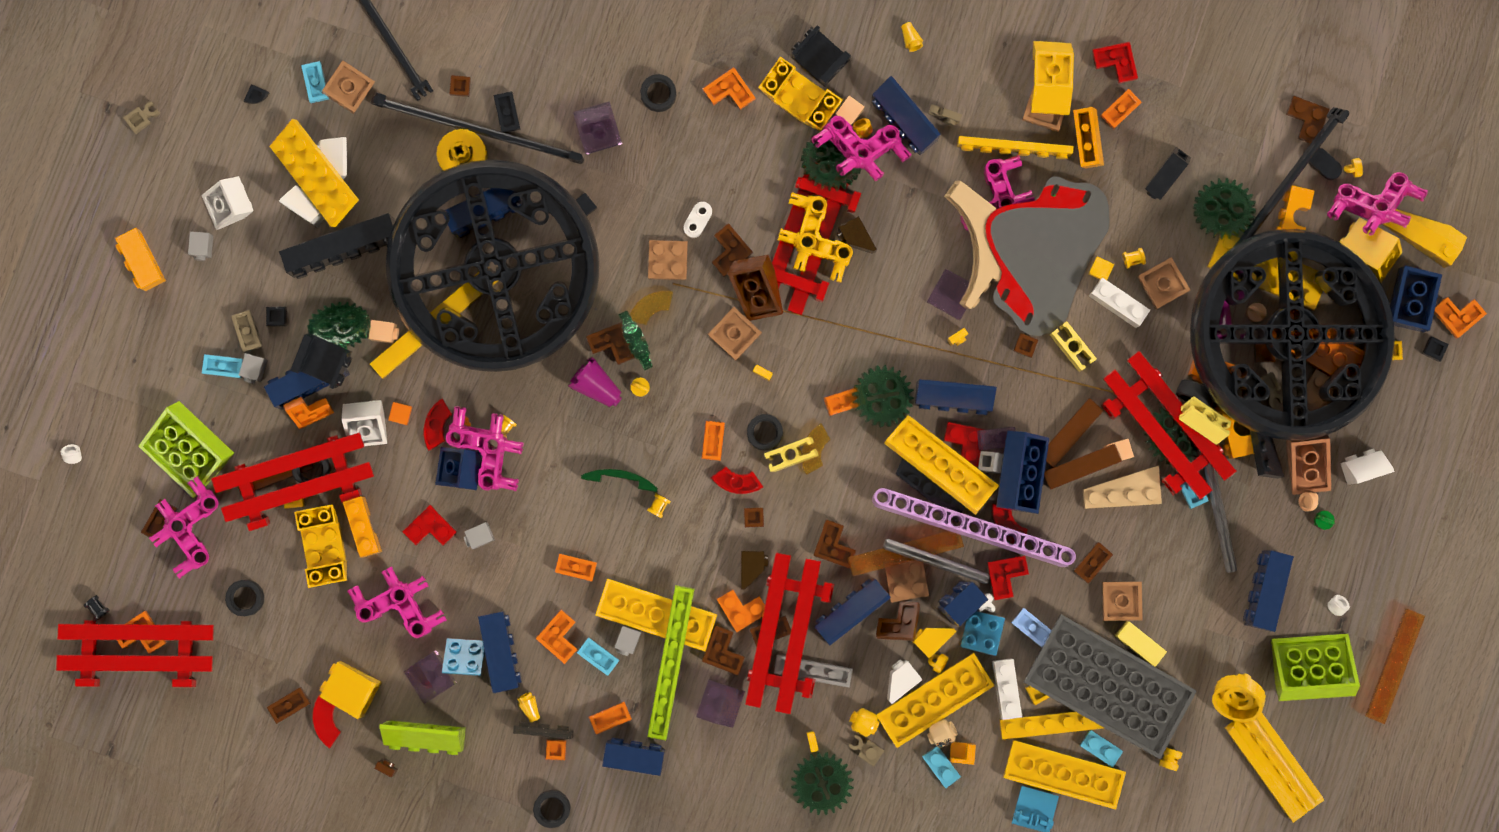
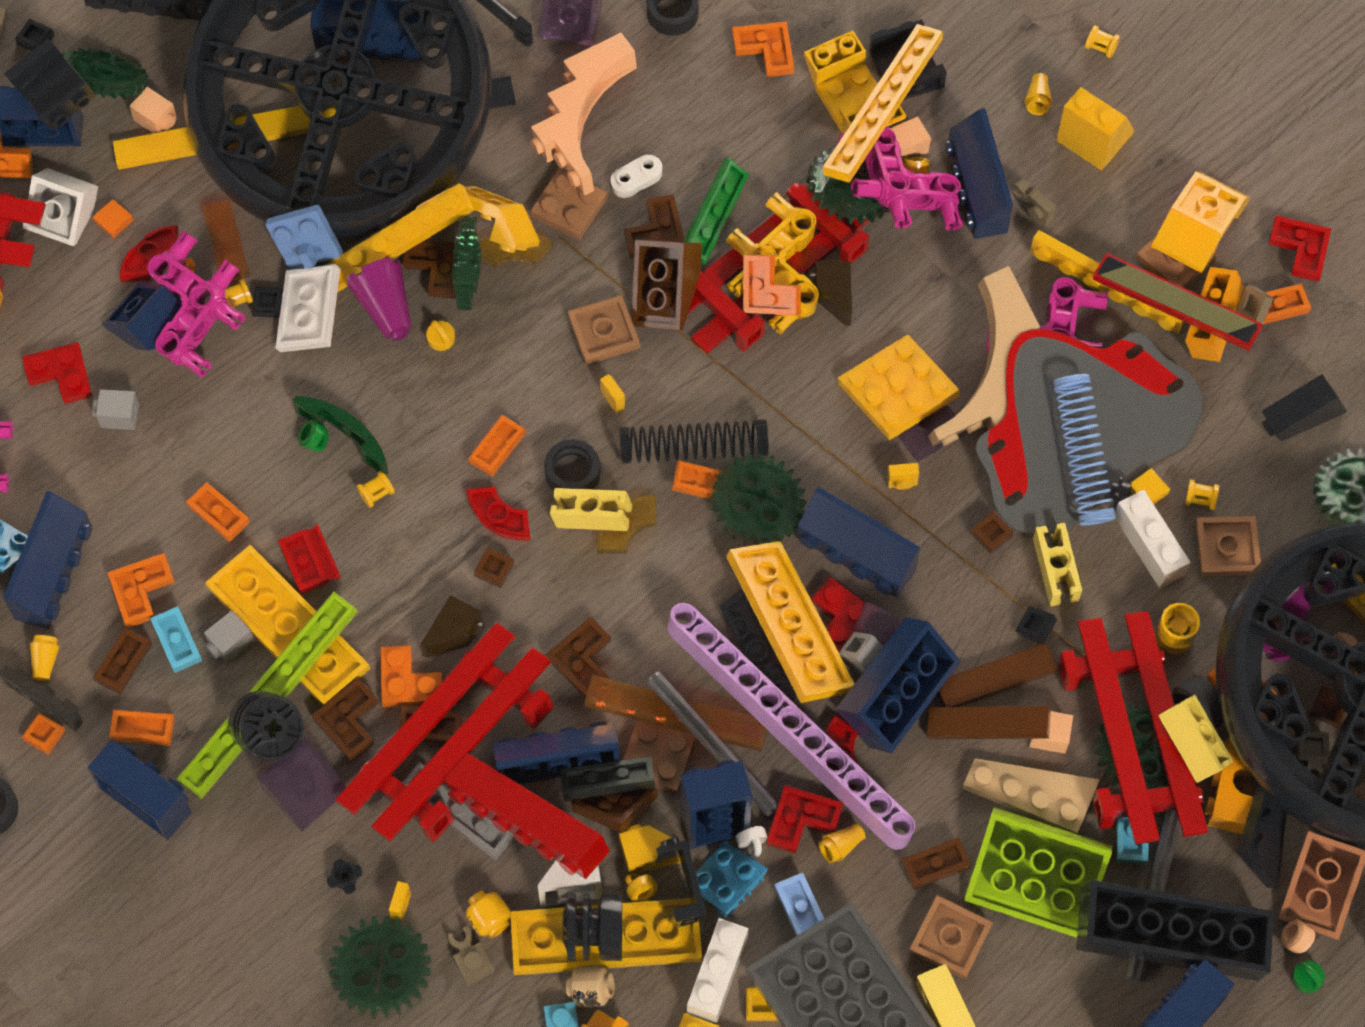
camera: 30 degrees right, 20 degrees down
(476, 392) = (225, 236): none -> clear orange plate
(525, 418) = (267, 302): none -> black tile
(528, 373) = (304, 237): none -> medium blue hinge
(553, 413) = (308, 308): none -> white tile
(575, 685) = (122, 661): none -> reddish brown plate
(584, 346) = (405, 232): none -> yellow plate
(603, 491) = (313, 436): none -> green tile
(628, 295) = (512, 224): none -> yellow slope
(634, 167) = (586, 79): none -> light nougat arch
(645, 568) = (309, 559): none -> red plate
(684, 686) = (257, 710): none -> black wheel
(758, 219) = (717, 207): none -> green tile
(768, 745) = (341, 868): none -> black plate
(786, 398) = (626, 441): none -> black piece
(819, 266) = (761, 292): none -> orange plate
(827, 102) = (882, 103): none -> yellow plate
(860, 664) = (526, 816): none -> red brick
(889, 612) = (607, 778): none -> pearl dark grey plate
(926, 280) = (898, 387): none -> yellow plate
(931, 705) = (594, 927): none -> black wheel
(958, 46) = (1093, 129): none -> yellow slope
(979, 669) = (692, 913): none -> black panel
(1031, 235) = (1071, 382): none -> light blue piece
(1035, 578) = (840, 843): none -> yellow cone
(1066, 146) = (1177, 301): none -> tile
(1078, 390) = (1036, 625): none -> black tile
(1087, 282) = (1120, 491): none -> black plate
(1110, 123) = (1255, 303): none -> dark tan plate
(1152, 538) = (1035, 871): none -> lime slope
(1160, 352) = (1177, 628): none -> yellow wheel
(1244, 537) = (1174, 929): none -> black brick

